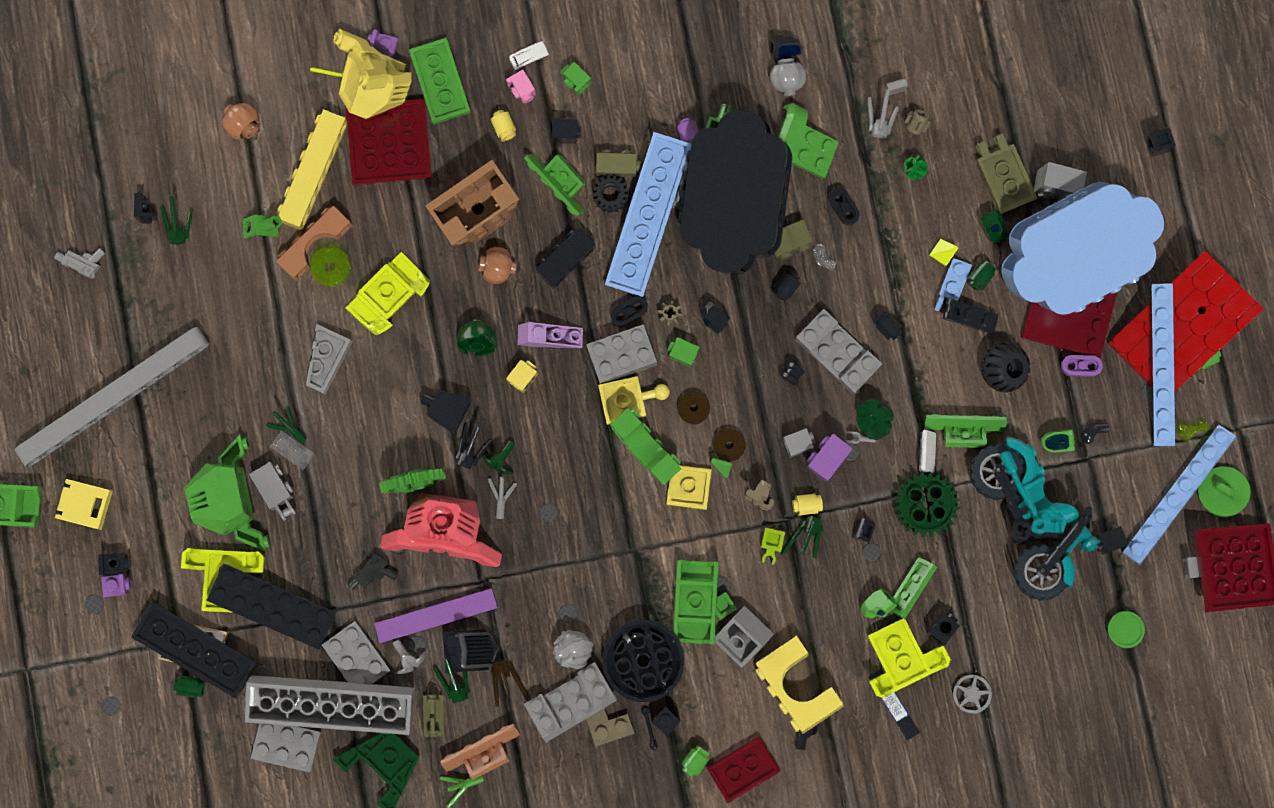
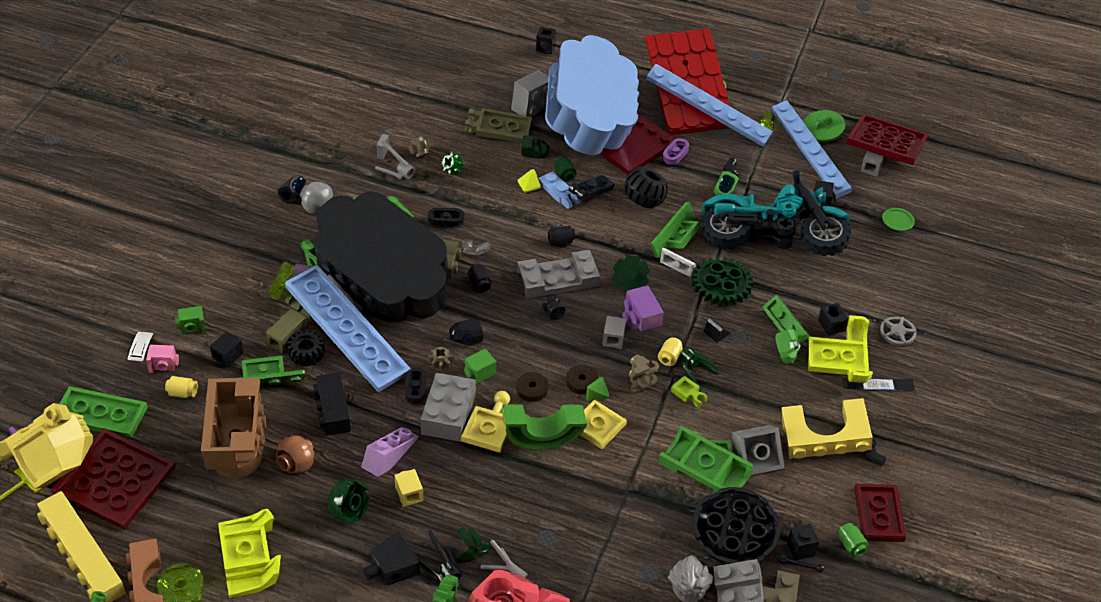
camera: 65 degrees left, 35 degrees down
(658, 122) = (279, 282): none -> clear neon green plate

